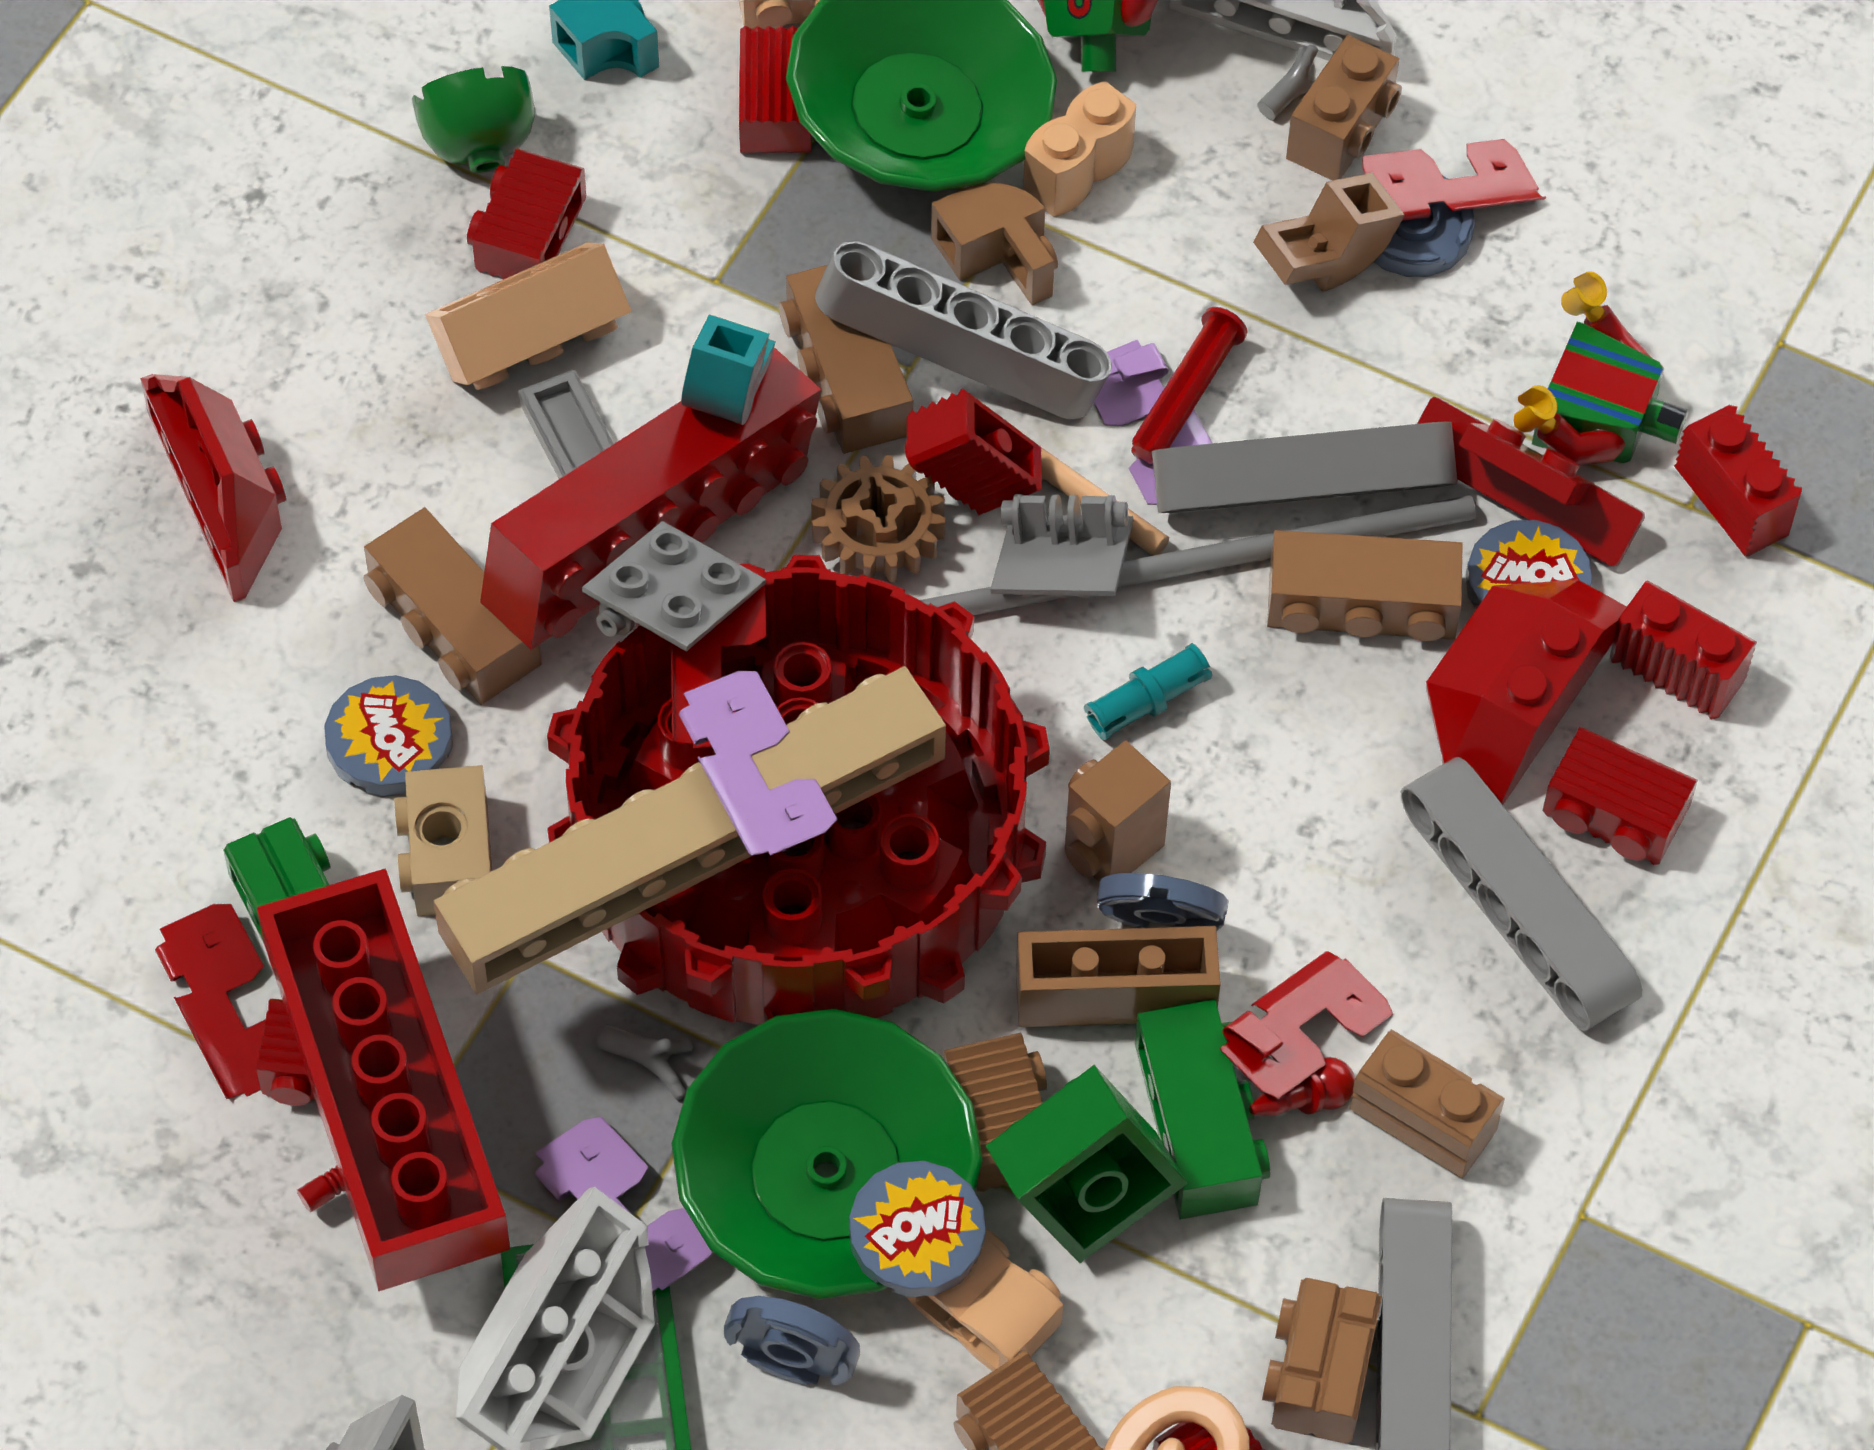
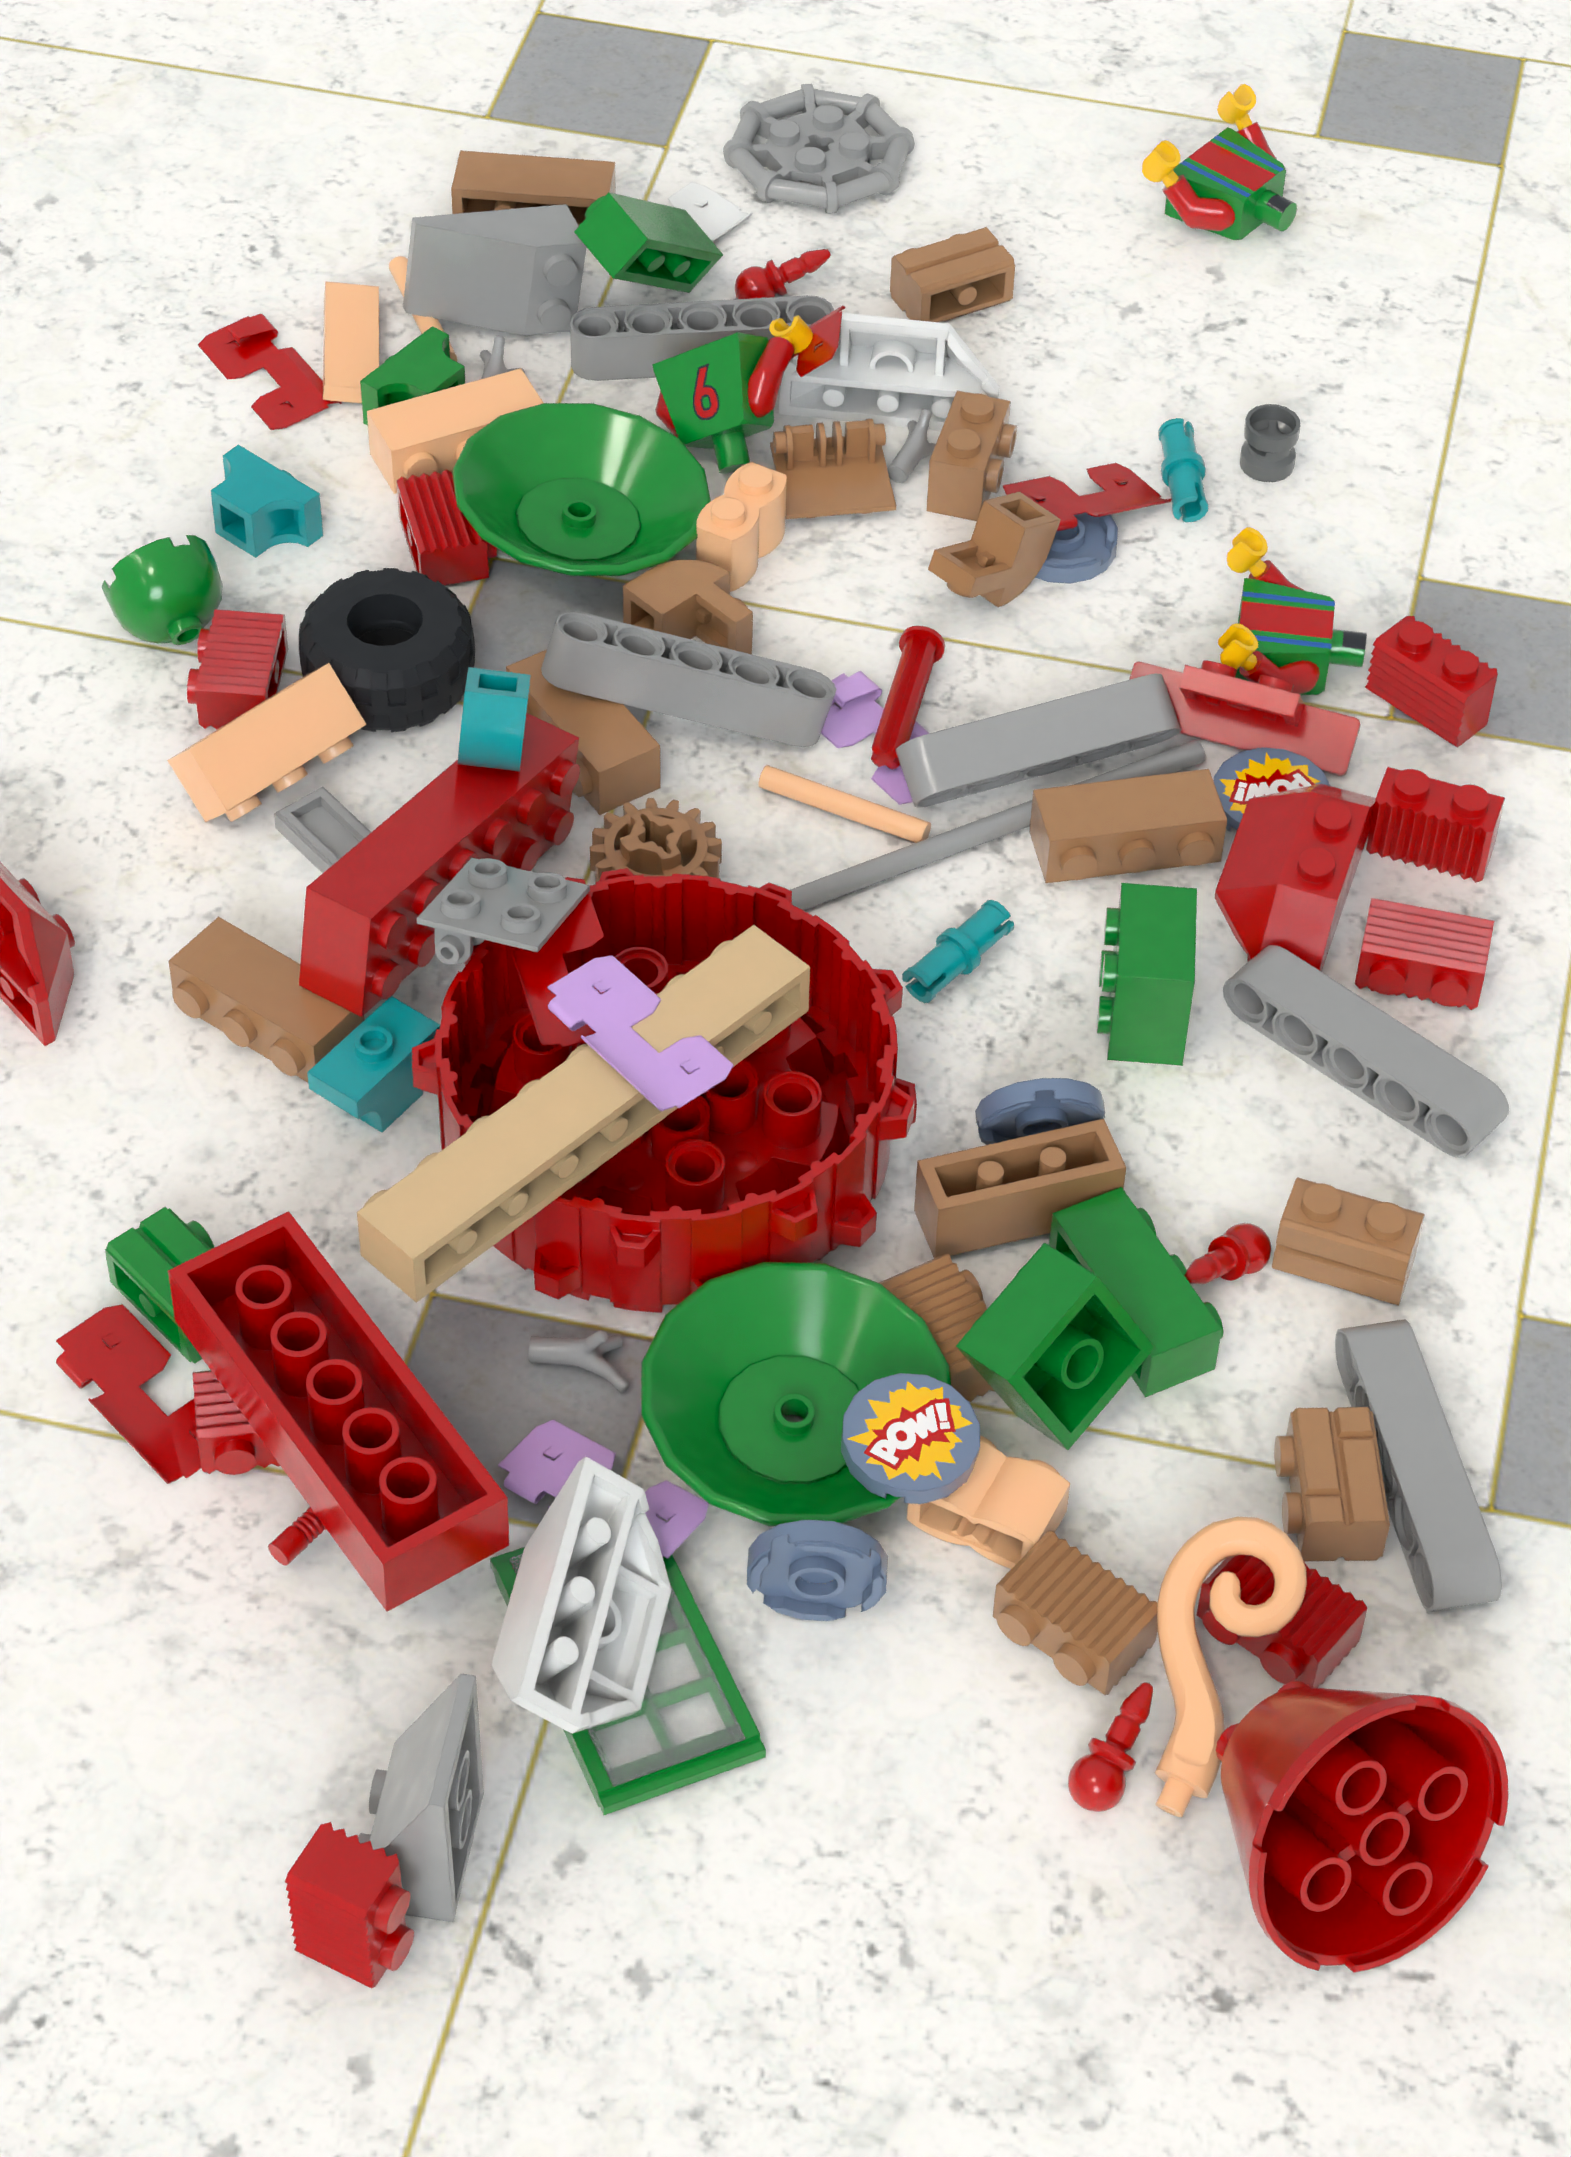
camera: 15 degrees left, 10 degrees down
(387, 730) = (235, 1128): tile -> none
(438, 806) = (323, 1189): tan brick -> none
(519, 705) = (372, 1066): none -> teal brick
(684, 184) = (393, 645): none -> black tyre
(972, 452) = (731, 775): red brick -> none
(1061, 551) = (842, 850): light grey hinge -> none
(1116, 813) = (970, 1046): medium nougat brick -> none
(1198, 97) = (833, 472): none -> medium nougat hinge
(1315, 987) = (1191, 1184): piece -> none
(1321, 766) = (1148, 973): none -> green brick
(1566, 167) = (1183, 470): none -> teal pin
(1669, 153) = (1270, 442): none -> dark grey wheel

